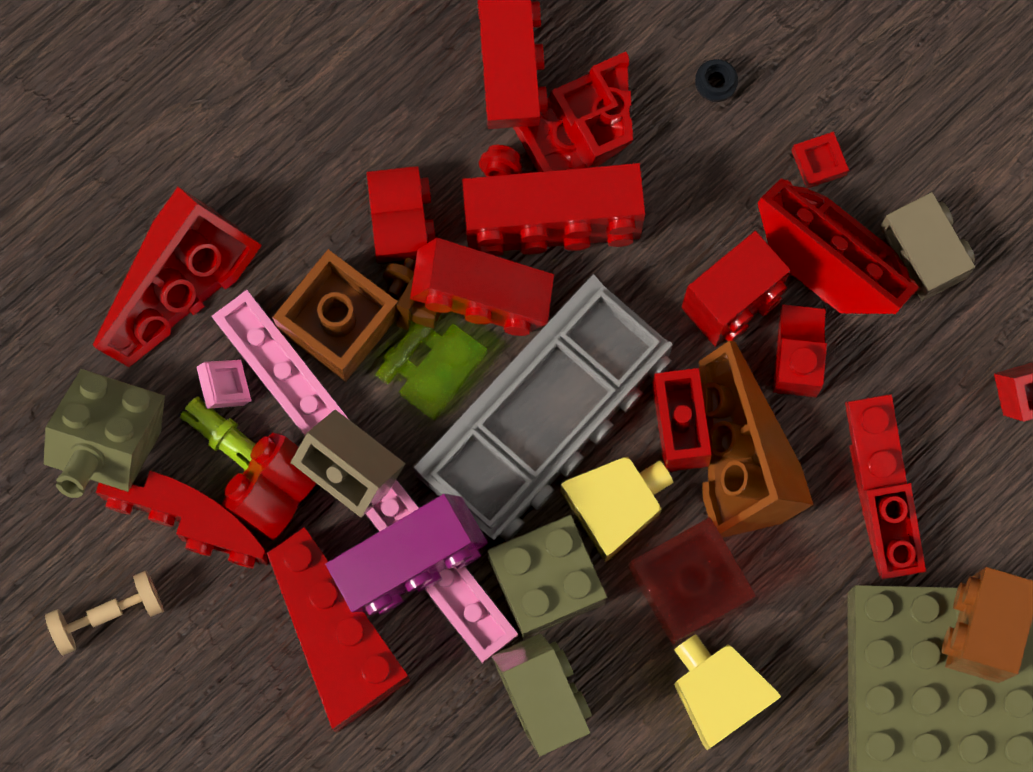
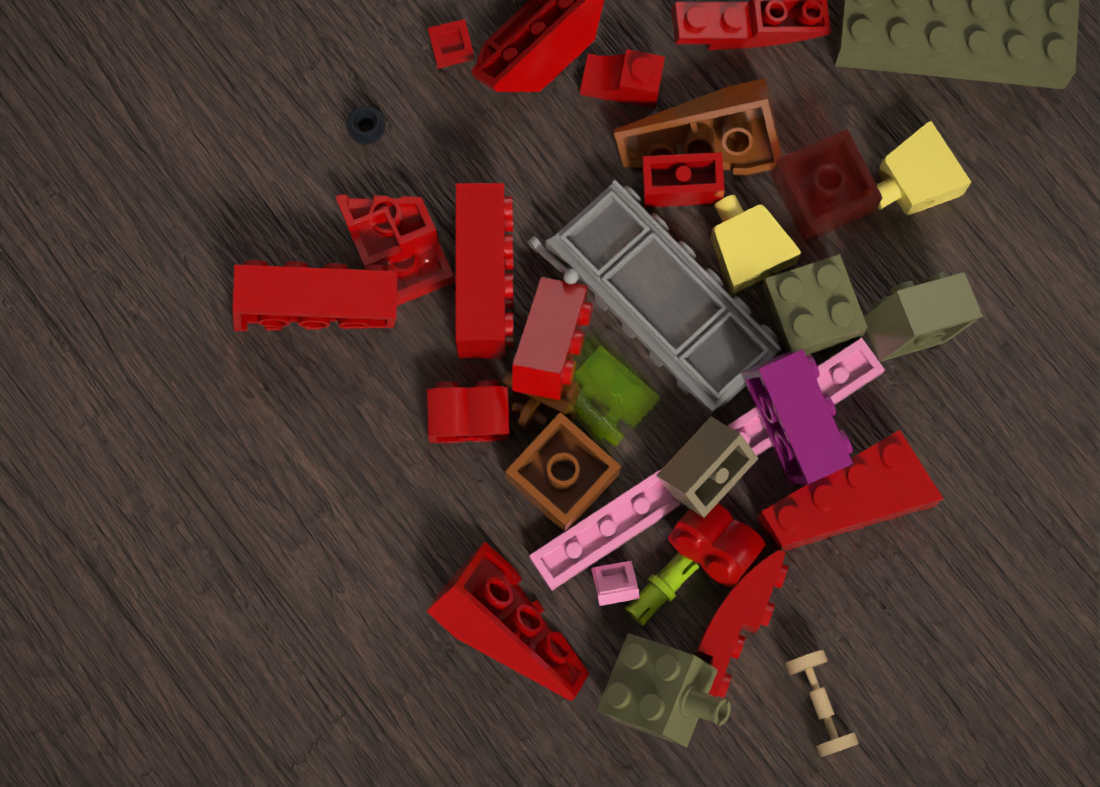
camera: 85 degrees left, 0 degrees up
(500, 161) = (428, 319): red plate -> none
(555, 302) = (569, 275): none -> light grey hinge
(736, 289) = (570, 120): red brick -> none

